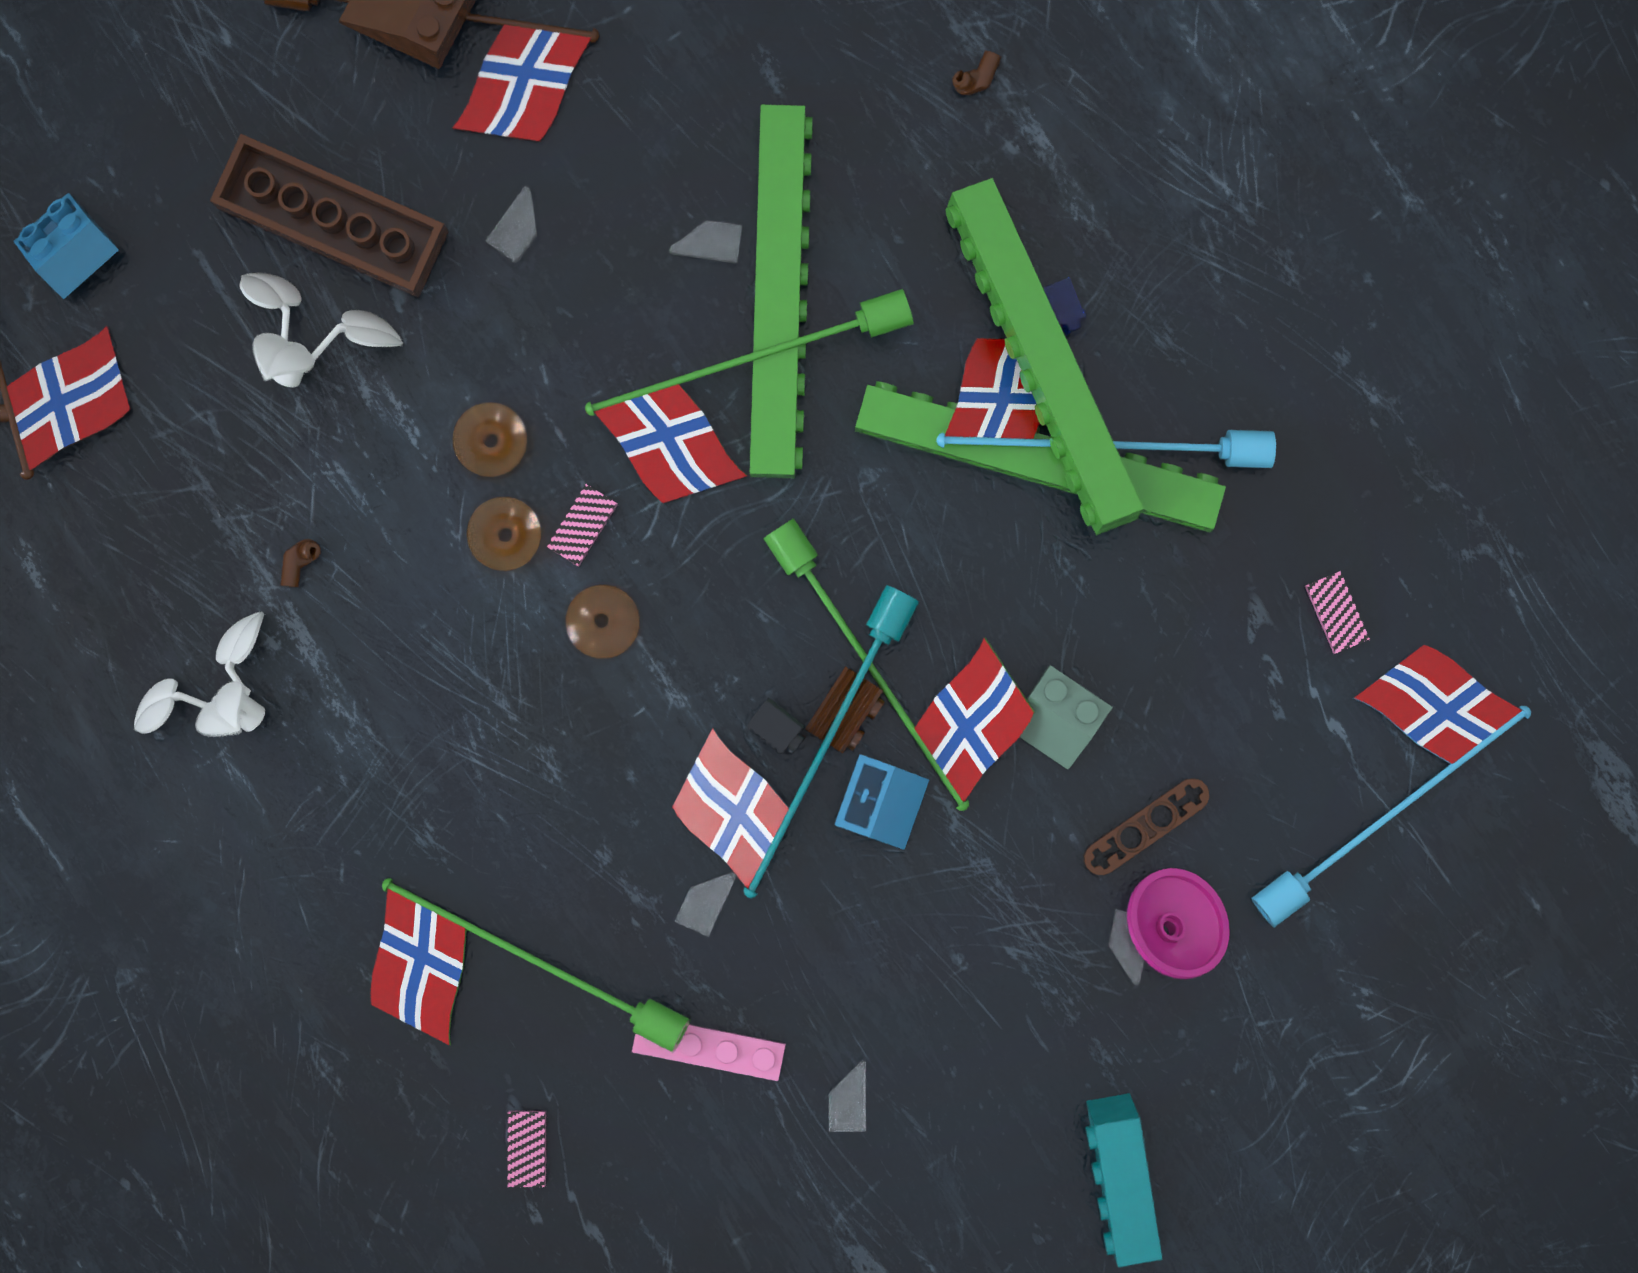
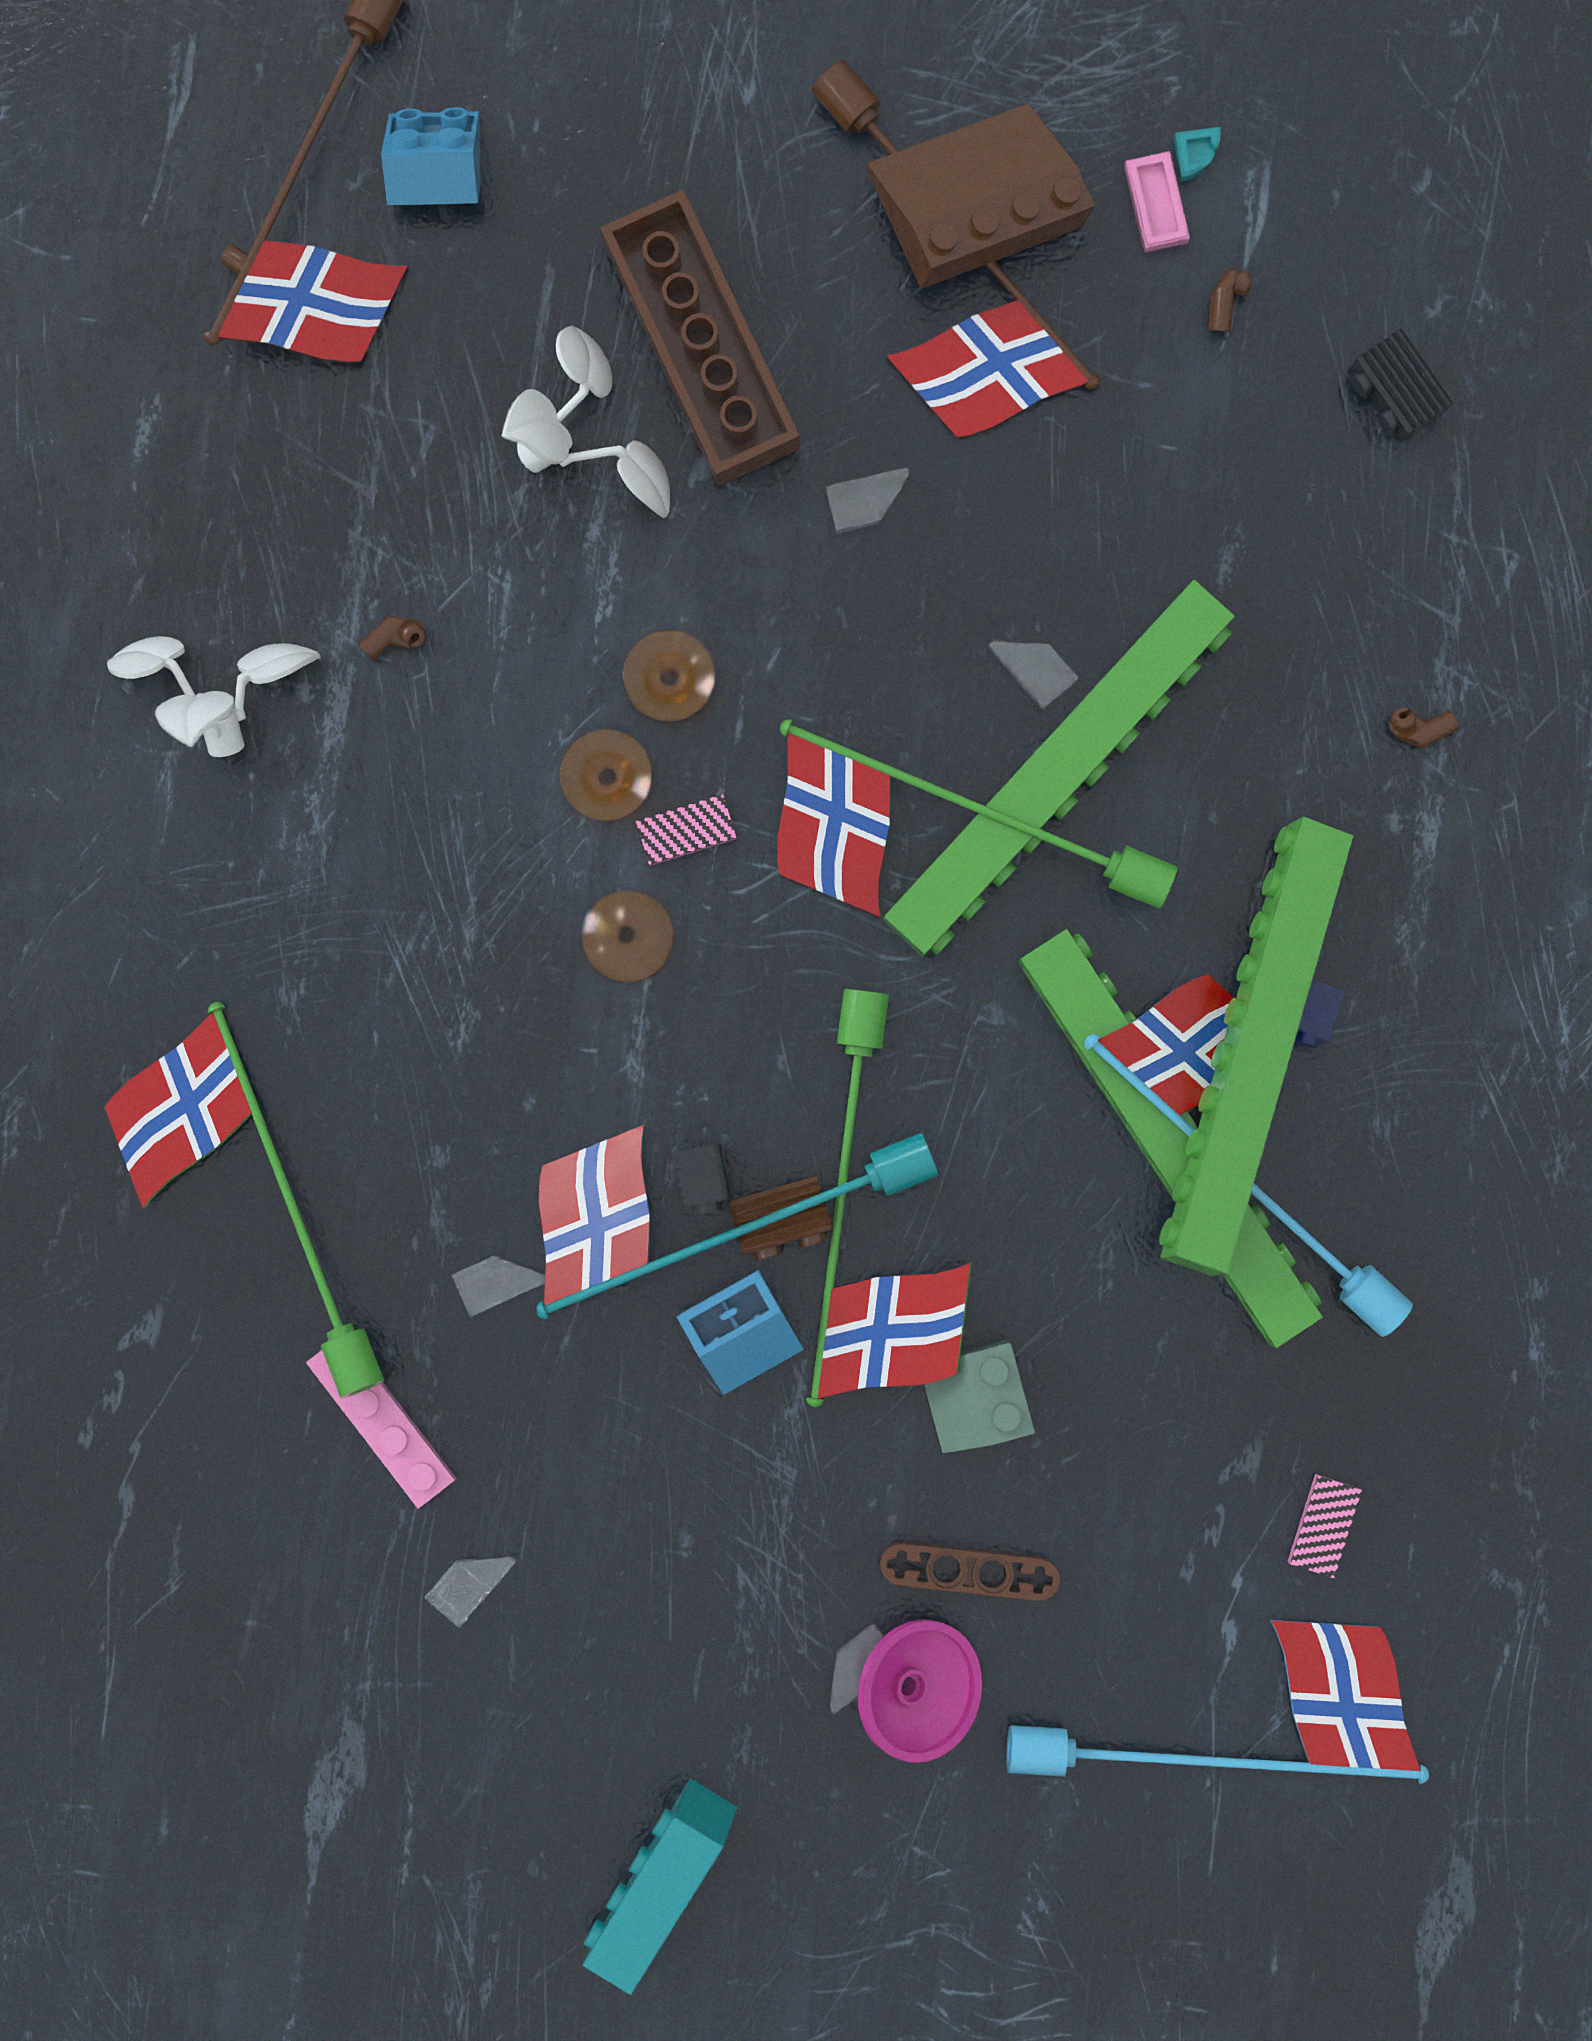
camera: 40 degrees right, 0 degrees up
(526, 1149) = (131, 1367): tile -> none

